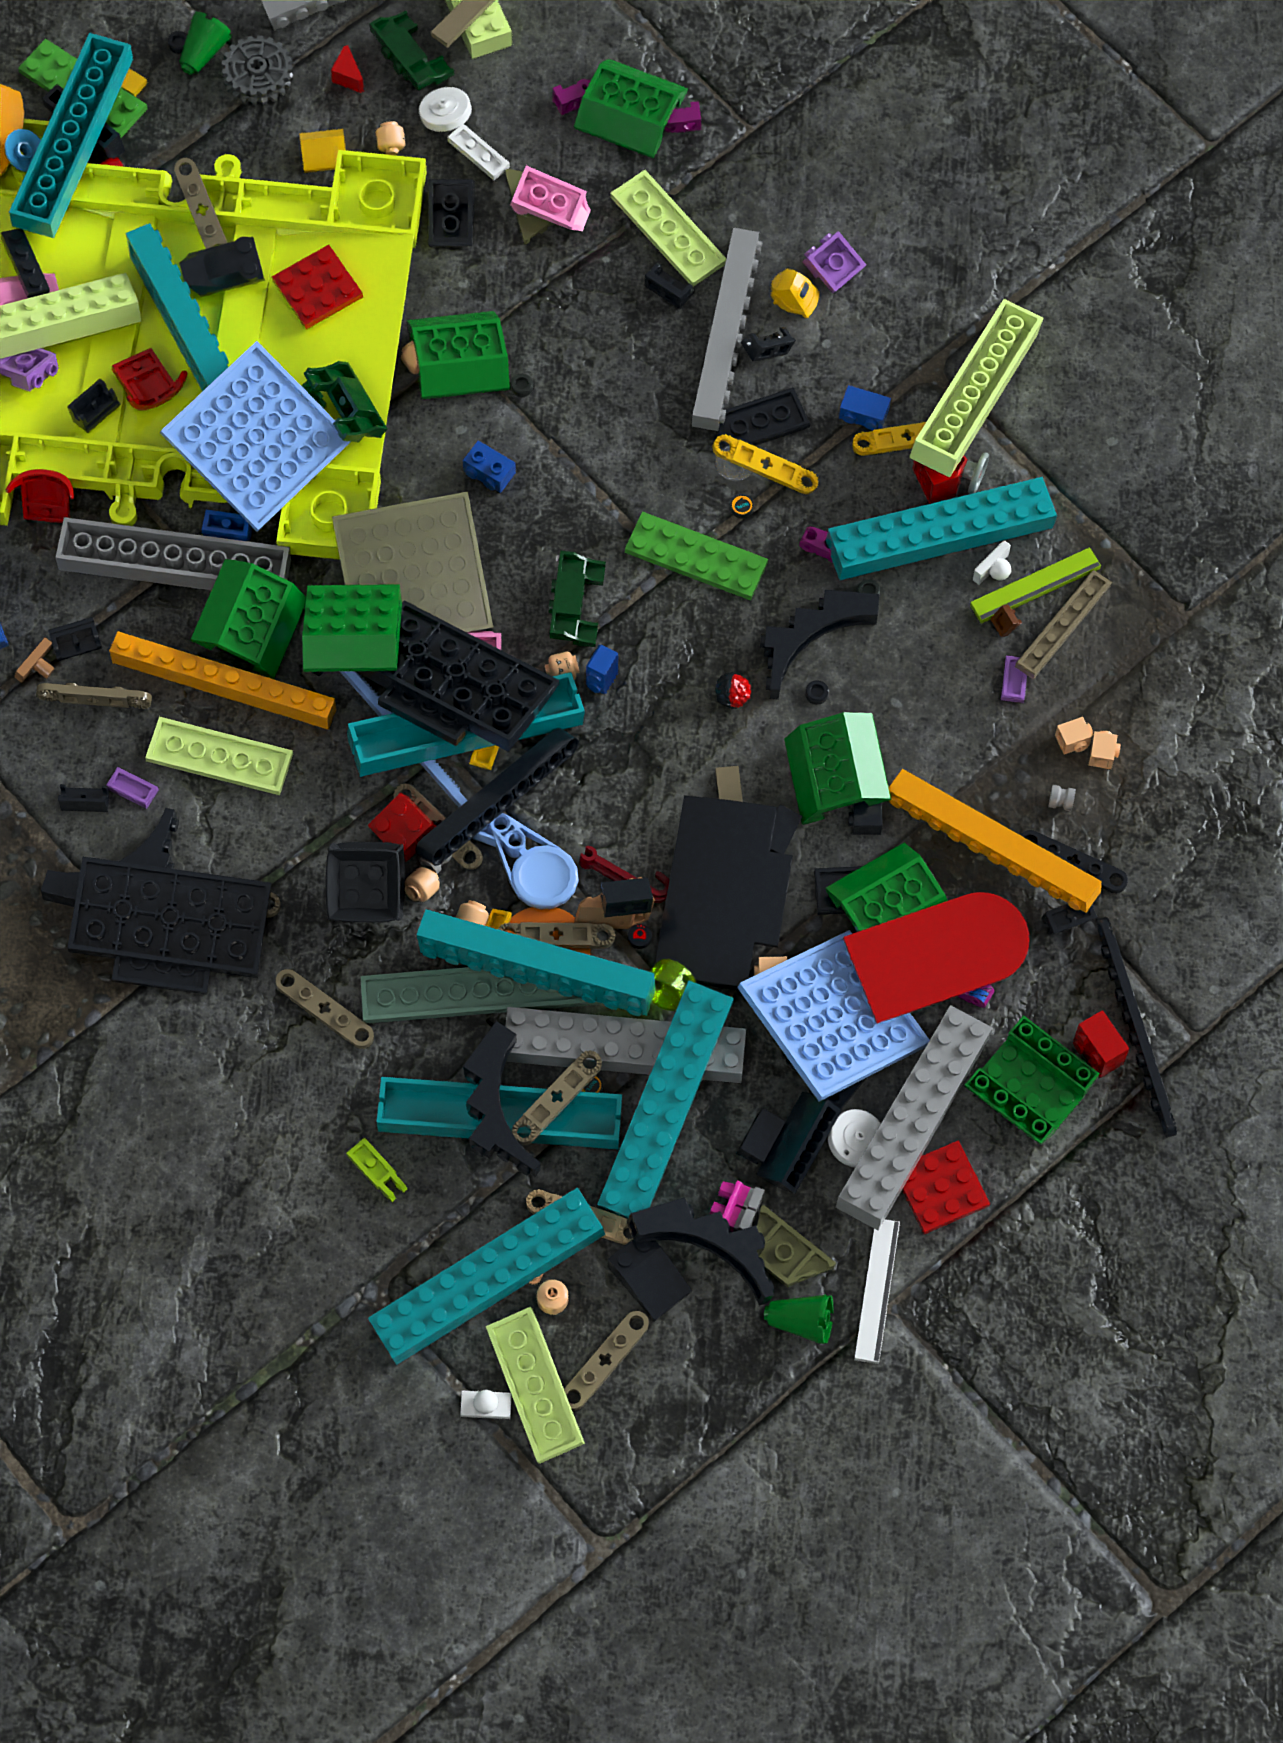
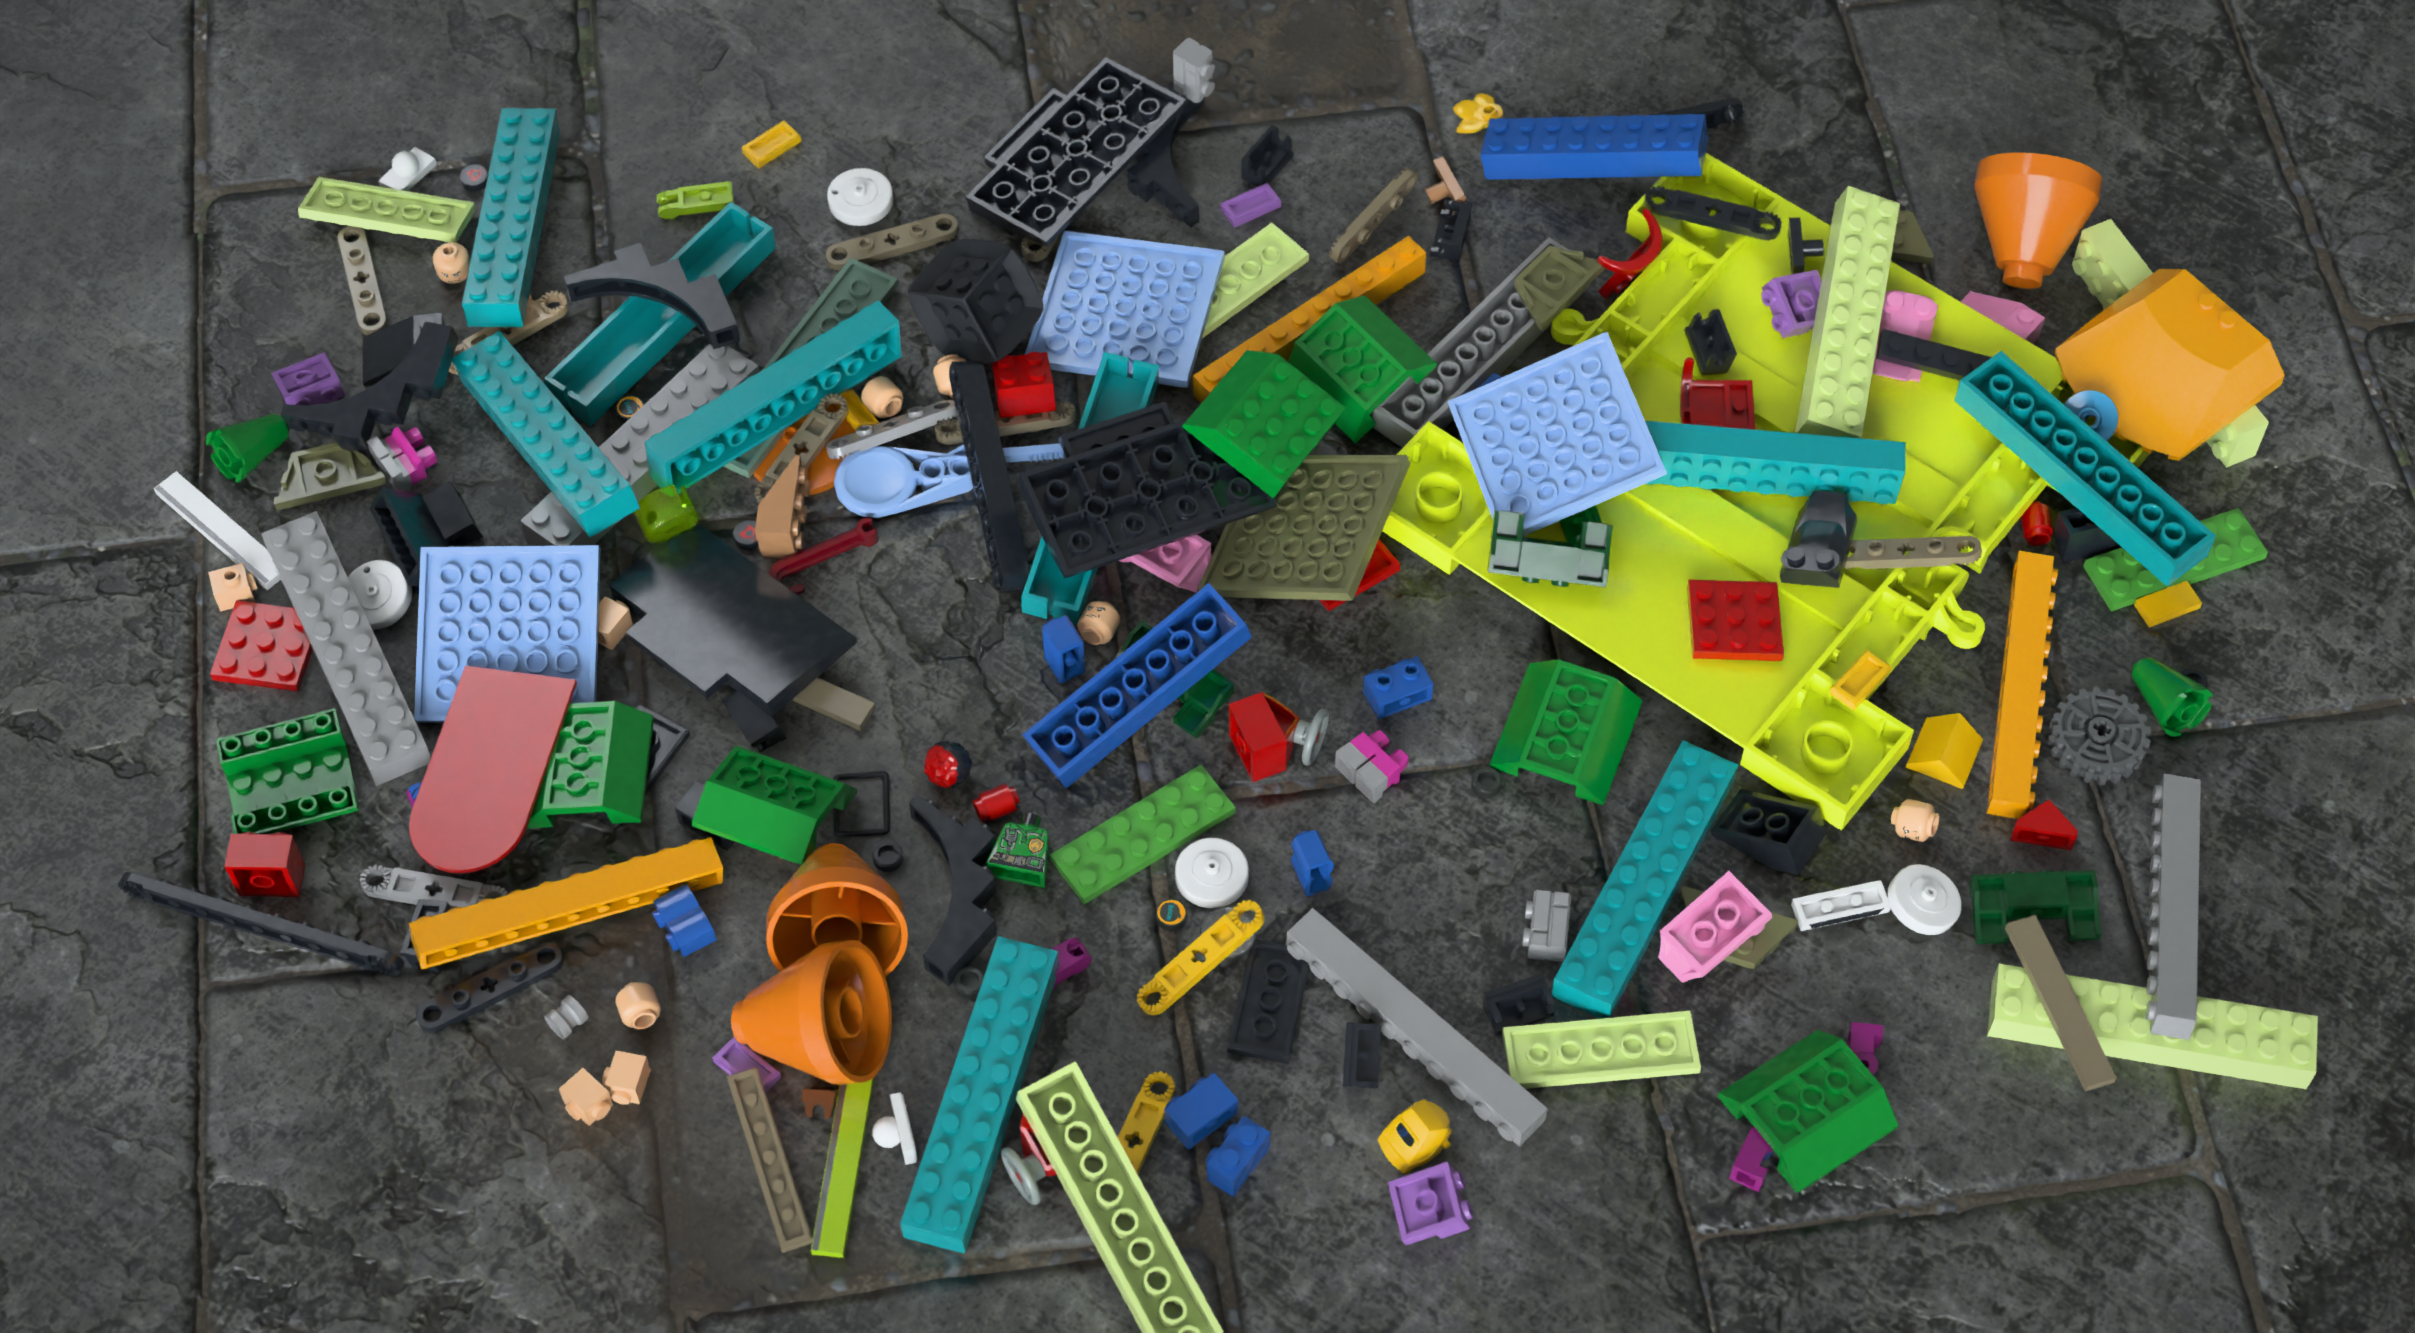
camera: 125 degrees right, 10 degrees down
(51, 866) = (1193, 70): none -> light grey brick
(101, 526) = (1555, 282): none -> olive wing
(246, 126) = (2021, 686): none -> light orange brick
(286, 804) = (1126, 301): none -> light blue plate
(286, 1156) = (771, 144): none -> yellow tile
(300, 1053) = (860, 196): none -> white wheel
(321, 192) = (1860, 680): none -> yellow tile
(459, 1350) = (474, 177): none -> tile
(480, 885) = (871, 436): none -> light grey piece
(535, 258) = (1644, 881): none -> teal brick
(560, 450) = (1369, 766): none -> hips
(569, 1084) = (629, 361): dark tan piece -> none
(582, 509) = (1267, 731): none -> red piece
(604, 295) = (1548, 925): none -> light grey brick
(607, 596) = (1137, 685): none -> blue brick
(626, 897) = (770, 494): black hinge -> none
(658, 437) = (1311, 862): none -> blue brick
(699, 496) = (1212, 872): none -> white wheel
(723, 1320) = (309, 382): none -> medium lavender plate
(737, 648) = (996, 803): none -> red brick
(761, 609) = (1021, 852): none -> torso
(776, 721) = (886, 816): none -> black piece
(877, 374) = (1238, 1155): none -> blue brick
(889, 671) = (836, 900): none -> orange cone
(917, 1240) = (231, 585): none -> light nougat brick
(951, 772) = (684, 921): none -> blue brick
(970, 639) = (822, 1014): none -> orange cone
(1024, 760) = (638, 1005): none -> light nougat head
(1043, 954) = (410, 886): none -> light grey piece

